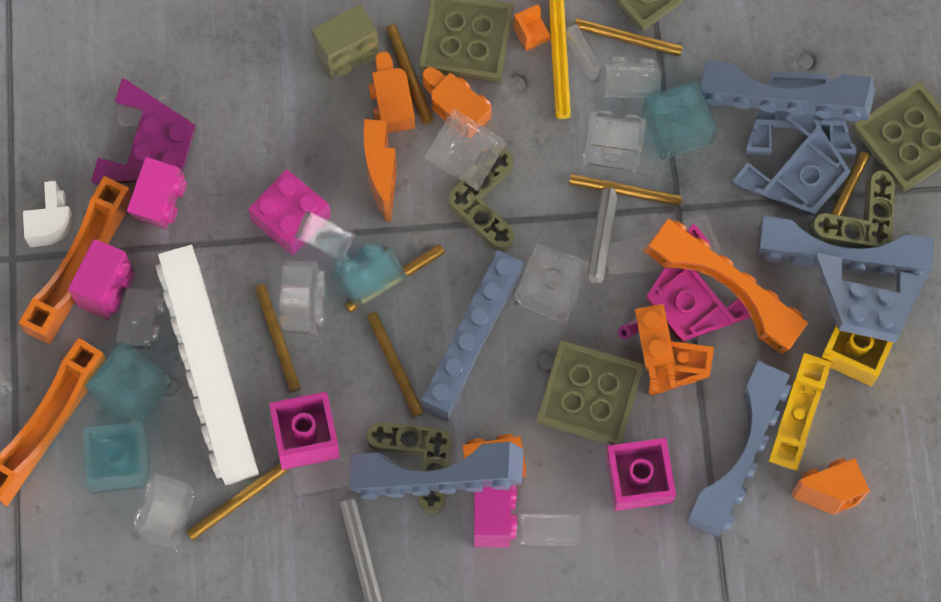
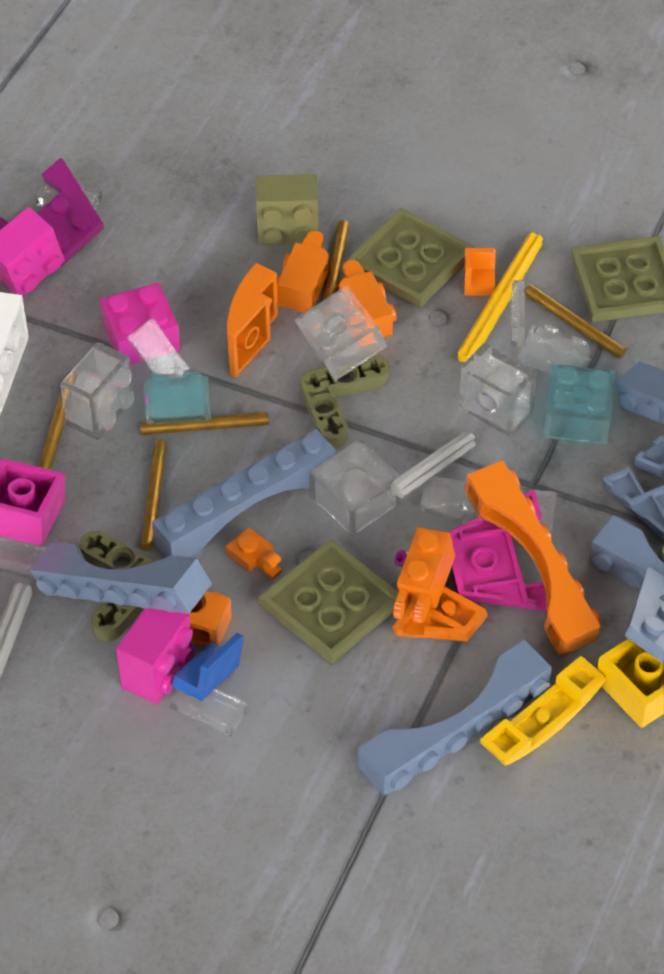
camera: 30 degrees right, 20 degrees down
(502, 378) = (254, 551): none -> orange plate
(535, 503) = (209, 668): none -> blue panel
(626, 190) = (489, 446): pearl gold bar -> none
(640, 474) = (332, 689): dark pink brick -> none
(833, 488) = (530, 790): orange slope -> none

